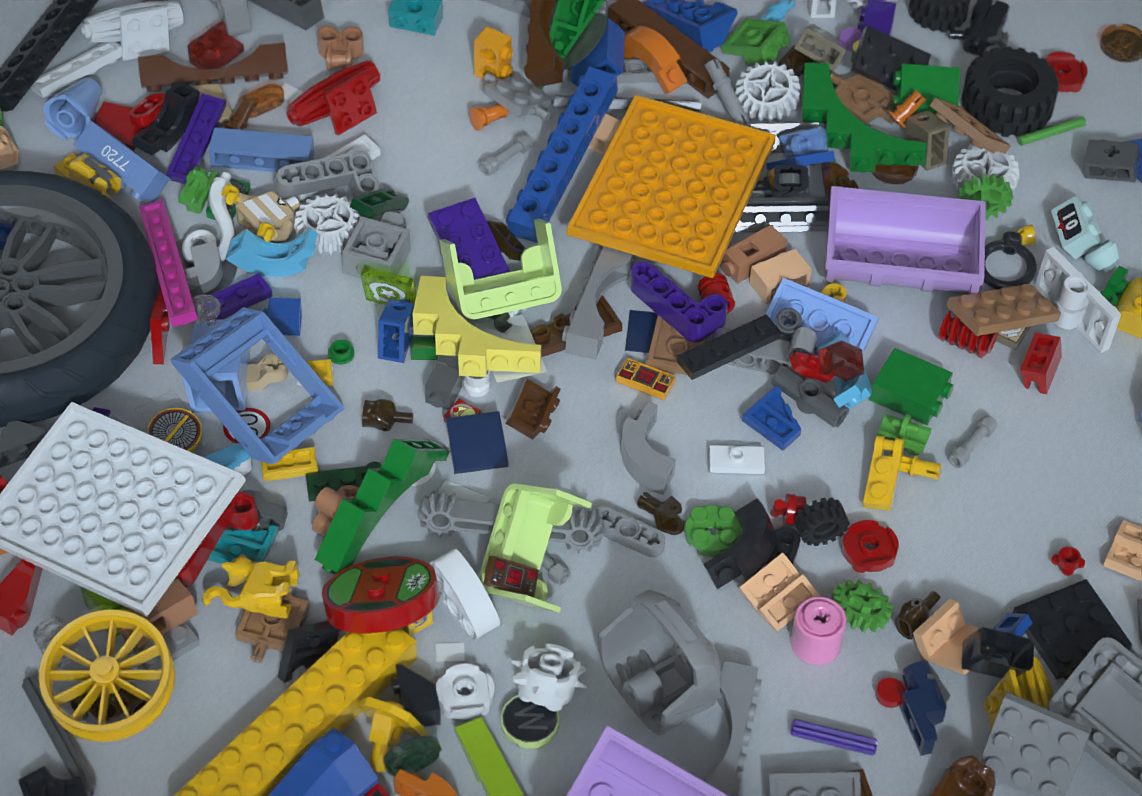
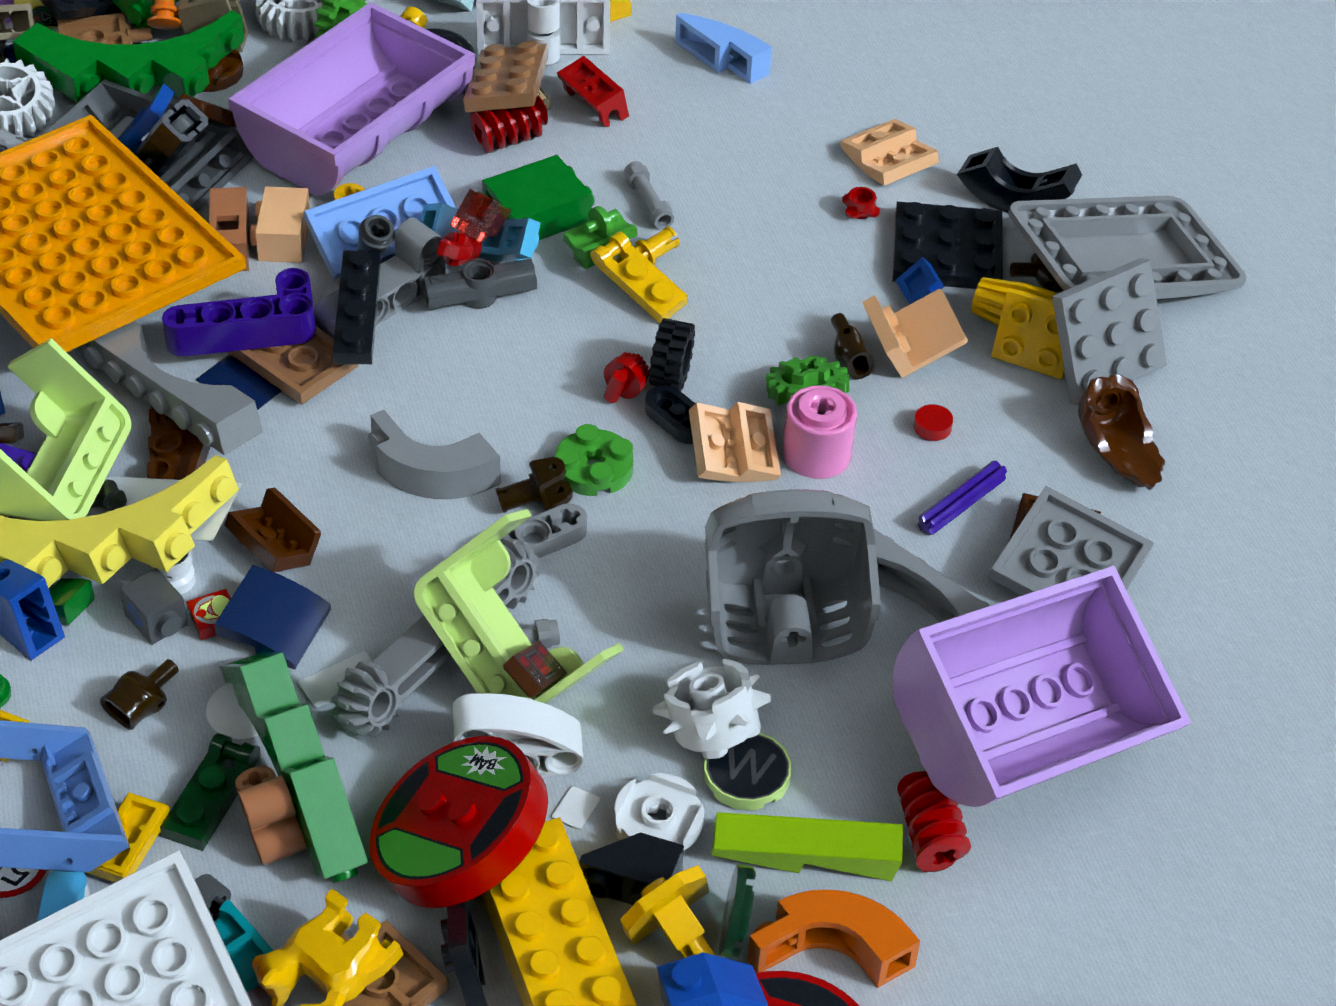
camera: 60 degrees left, 5 degrees down
(645, 379) = (318, 413): tile -> none
(717, 285) = (253, 282): red piece -> none
(736, 459) = (508, 392): white plate -> none
(750, 550) = (643, 412): black arch -> none
(773, 419) = (483, 331): blue wing -> none
(804, 142) = (122, 103): medium blue hips -> none
(865, 559) = (731, 356): red plate -> none
(923, 704) = (977, 403): dark blue plate -> none
(1020, 647) = (976, 292): black piece -> none

